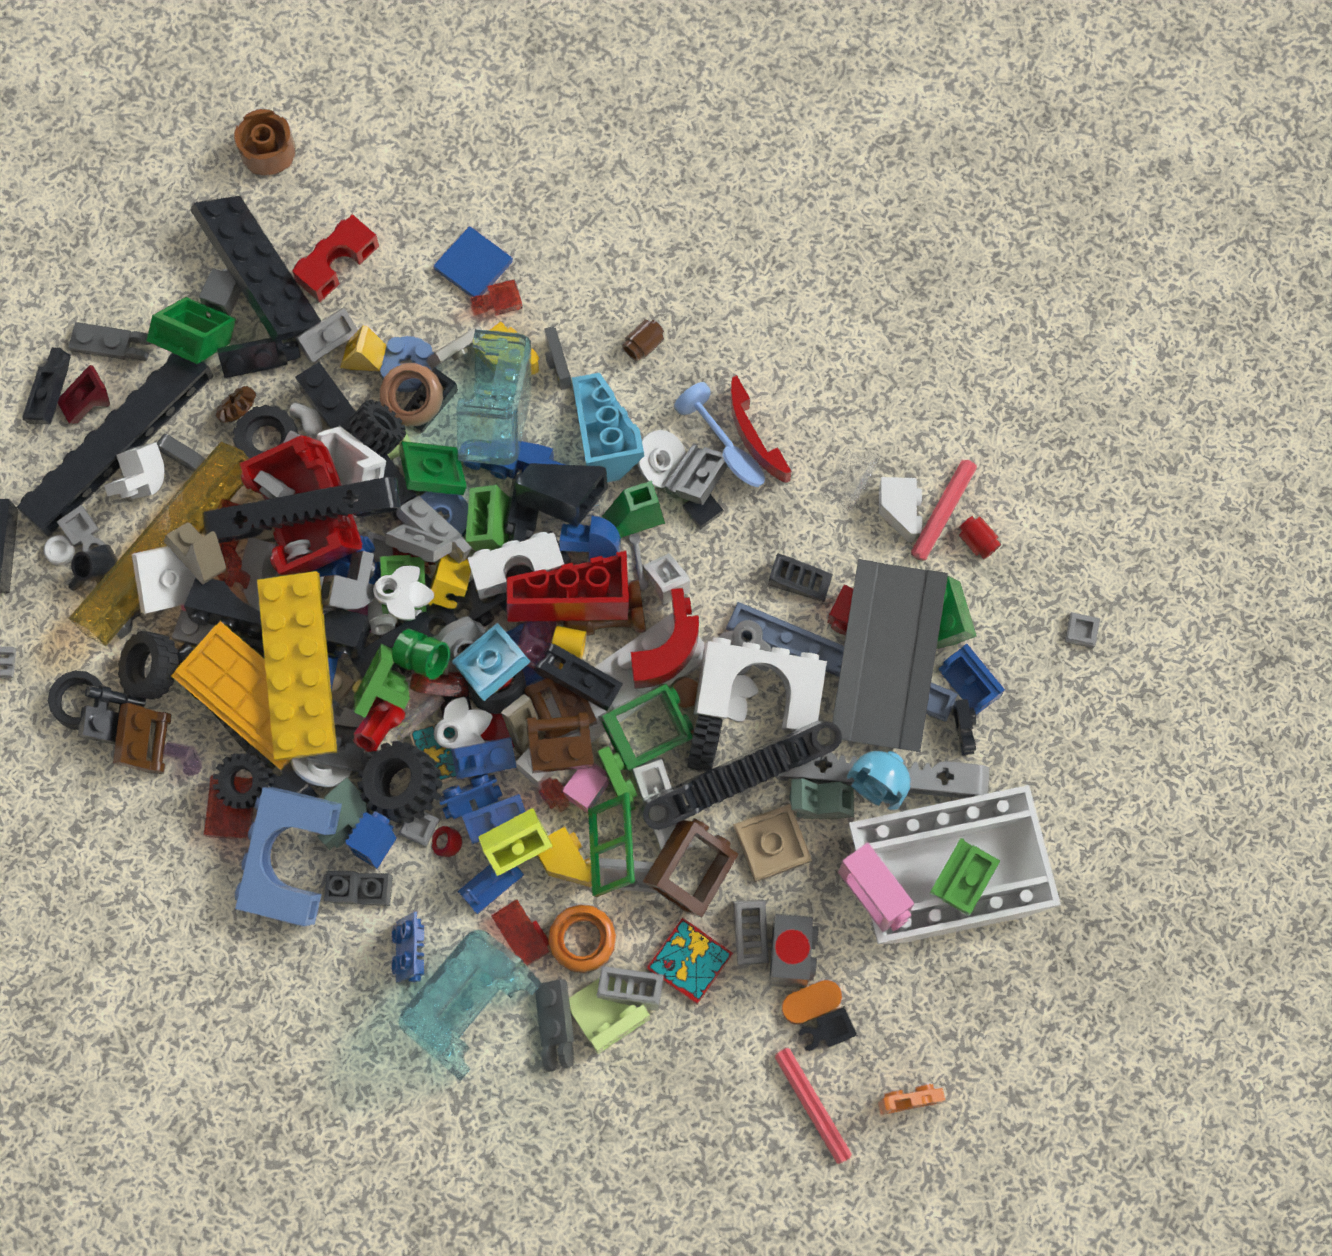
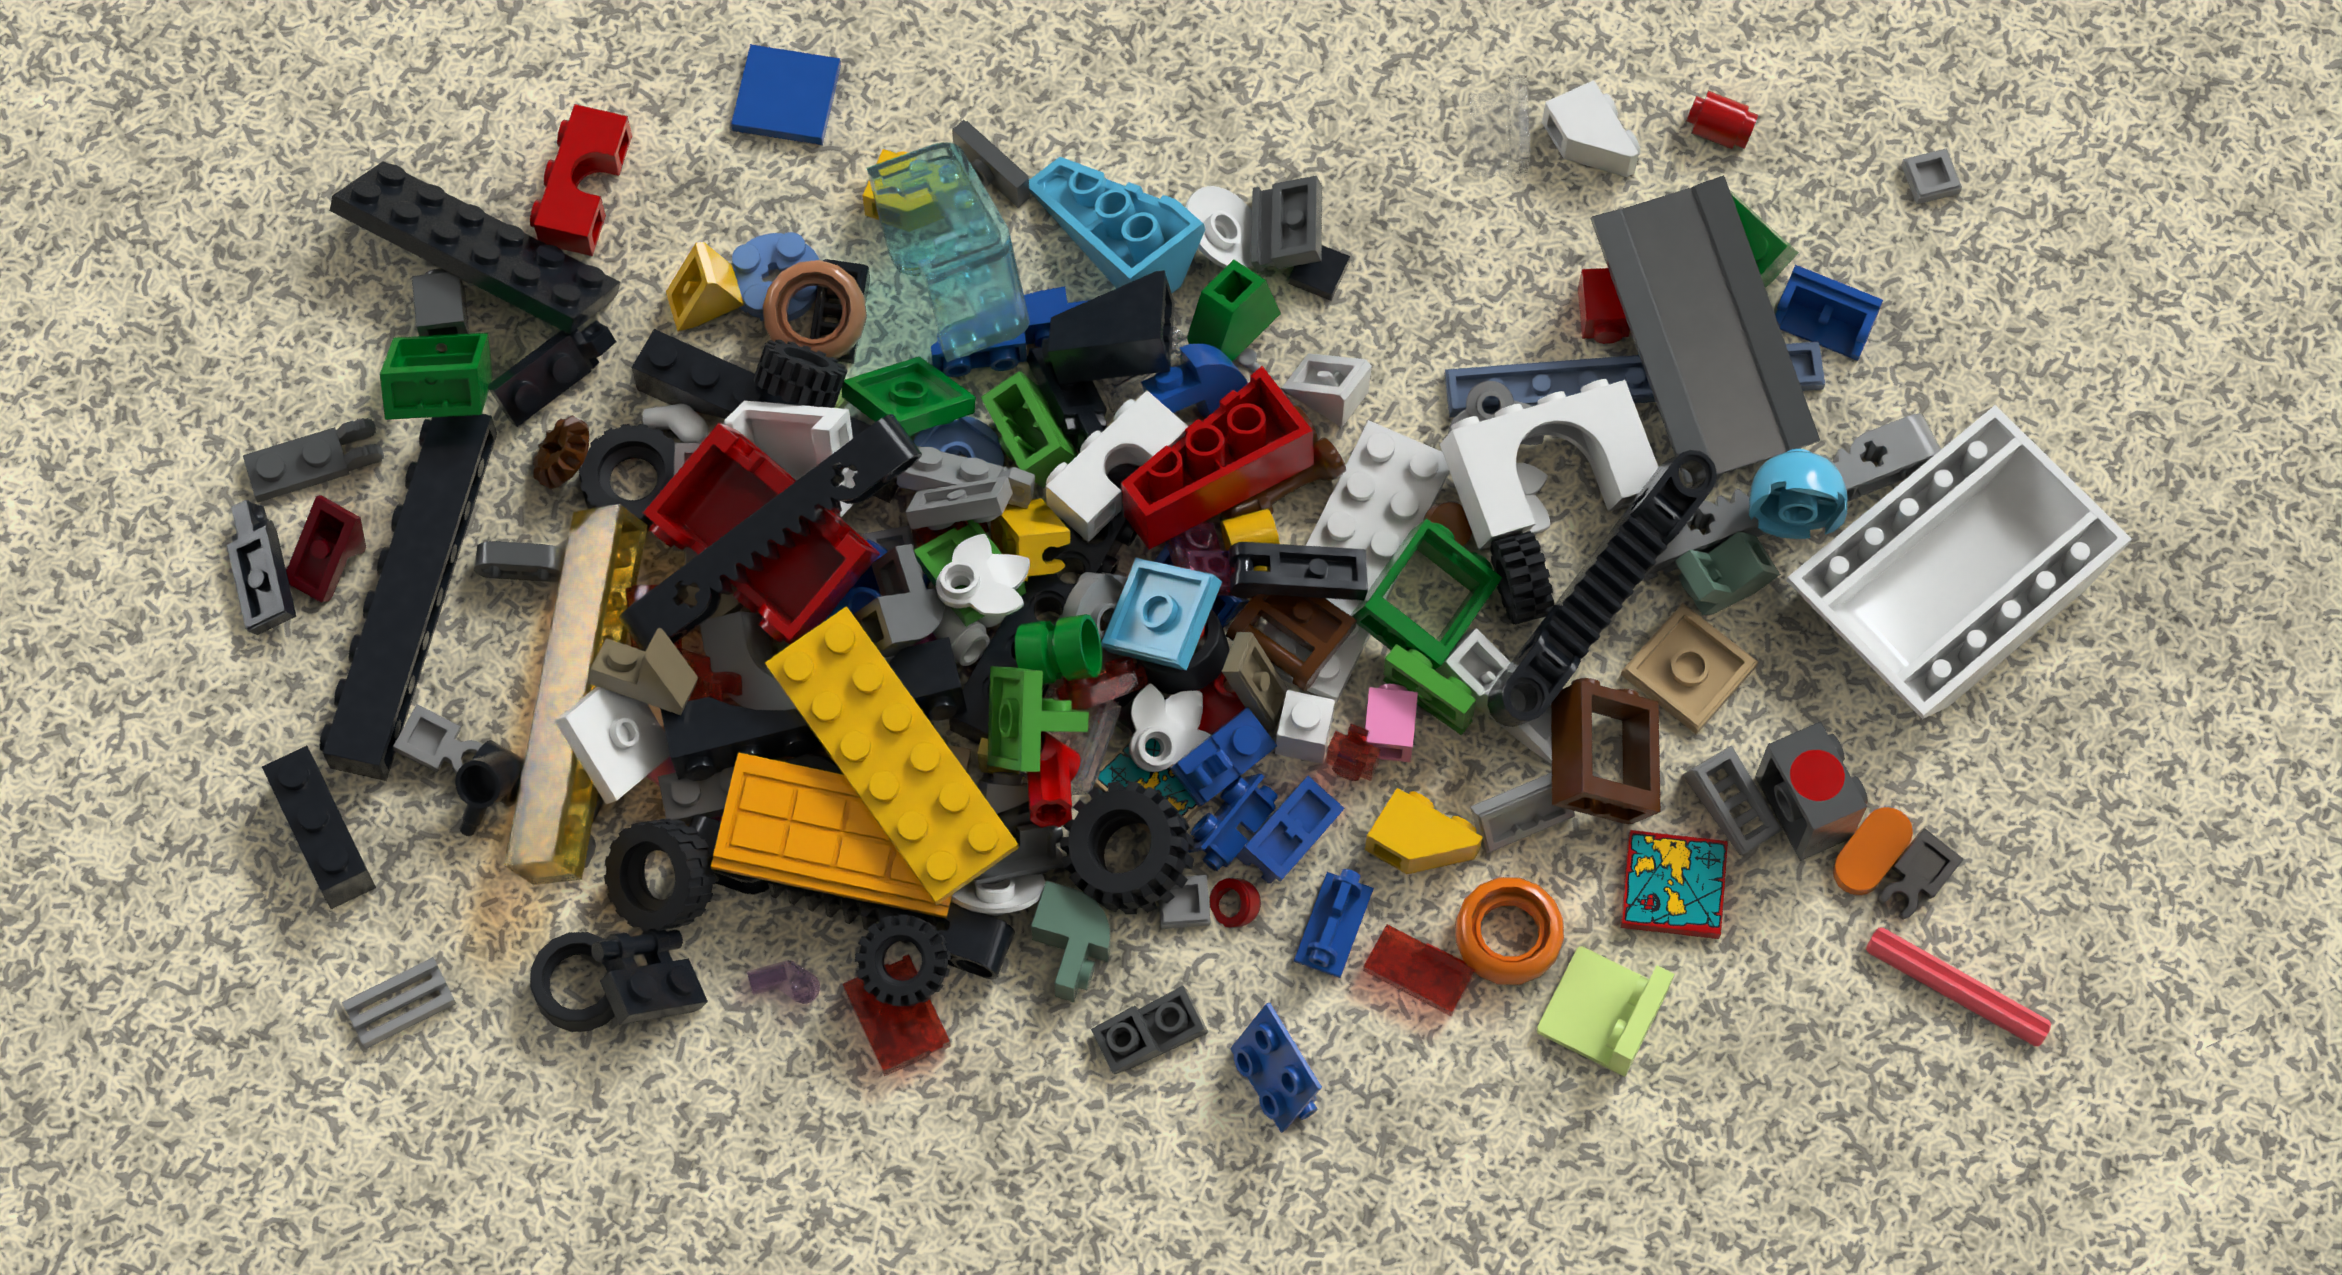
camera: 30 degrees left, 5 degrees down
(59, 550) = (416, 789): white tile -> none
(133, 738) = (700, 988): reddish brown plate -> none
(141, 471) = (478, 614): white brick -> none
(260, 888) = (982, 976): medium blue arch -> none
(265, 142) = (380, 67): dark orange brick -> none
(272, 487) = (706, 524): light grey plate -> none
(297, 549) = (793, 597): light grey bush -> none
(326, 335) = (636, 292): light grey plate -> none
(371, 839) = (1135, 946): blue brick -> none
(454, 349) = (839, 217): plate -> none
(459, 994) = (1399, 1036): clear light blue windscreen -> none
(501, 297) = (855, 121): clear red plate -> none
(515, 841) = (1346, 839): neon yellow brick -> none
(555, 1024) = (1540, 1063): dark grey hinge -> none
(560, 753) = (1336, 685): reddish brown plate -> none
(595, 849) = (1461, 797): green window -> none
(629, 998) = (1629, 938): light grey slope -> none
(643, 339) = (1097, 81): reddish brown brick -> none
(668, 660) = (1397, 501): red arch -> none
(737, 459) = (1221, 126): light blue piece -> none
(771, 461) = (1379, 159): red slope -> none
(797, 588) = (1497, 313): black slope -> none
(876, 888) = (1887, 636): bright pink window -> none
(897, 1101) = (2095, 897): orange wing -> none
(943, 510) = (1650, 109): coral axle -> none
(965, 720) = (1852, 374): black plate -> none
(965, 877) = (1988, 565): bright green plate -> none

